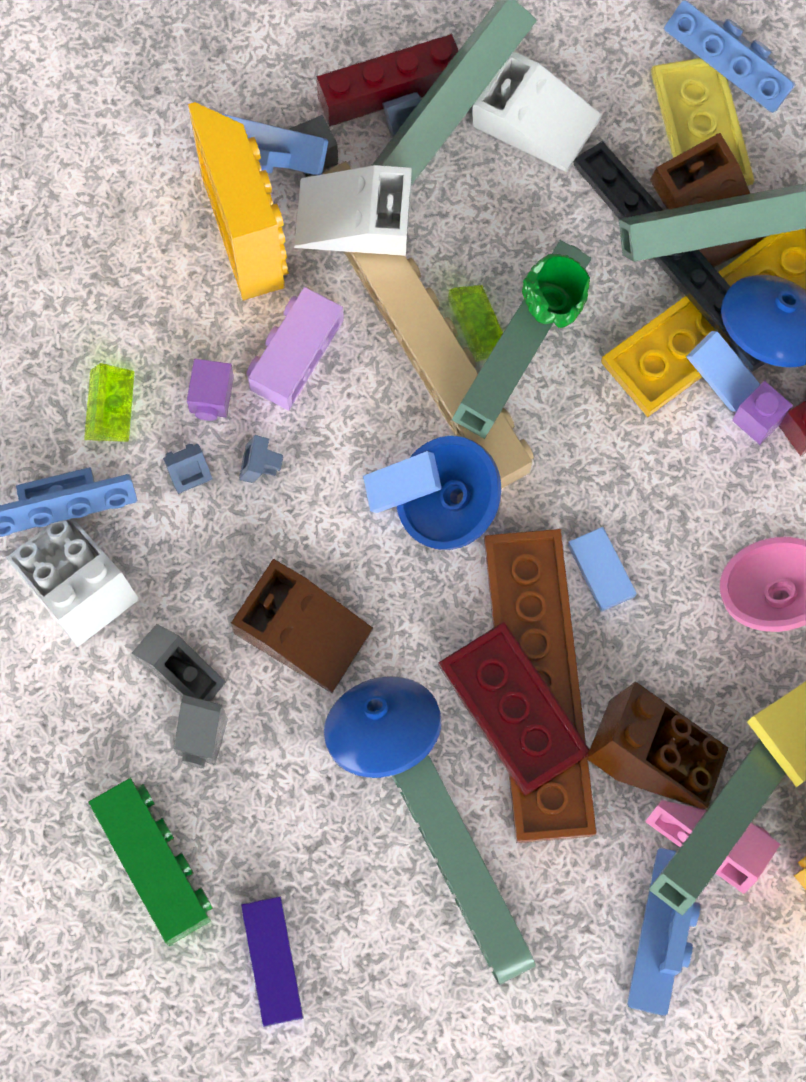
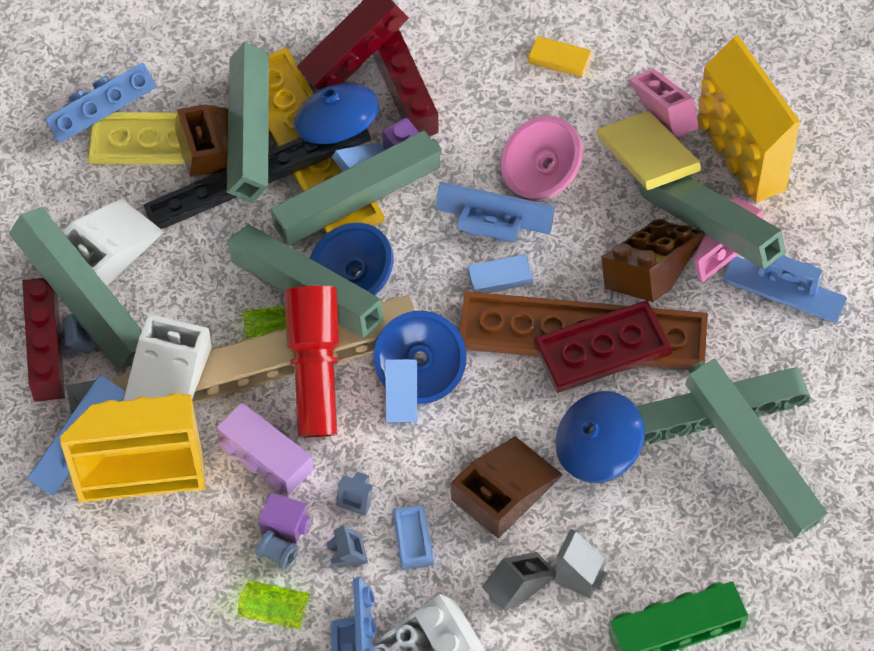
camera: 75 degrees left, 15 degrees down
(170, 391) = (277, 550): none -> sand blue bush
(219, 537) = (413, 537): none -> light blue tile
(272, 961) = (769, 553): dark purple tile -> none
(398, 918) = (755, 447): none -> sand green brick
(428, 360) = (313, 337): none -> red piece
(556, 290) = (280, 238): green hair -> none
(566, 373) = (356, 249): none -> blue dish
(674, 370) = (356, 187): none -> sand green brick
(682, 542) = (493, 213): none -> medium blue bracket

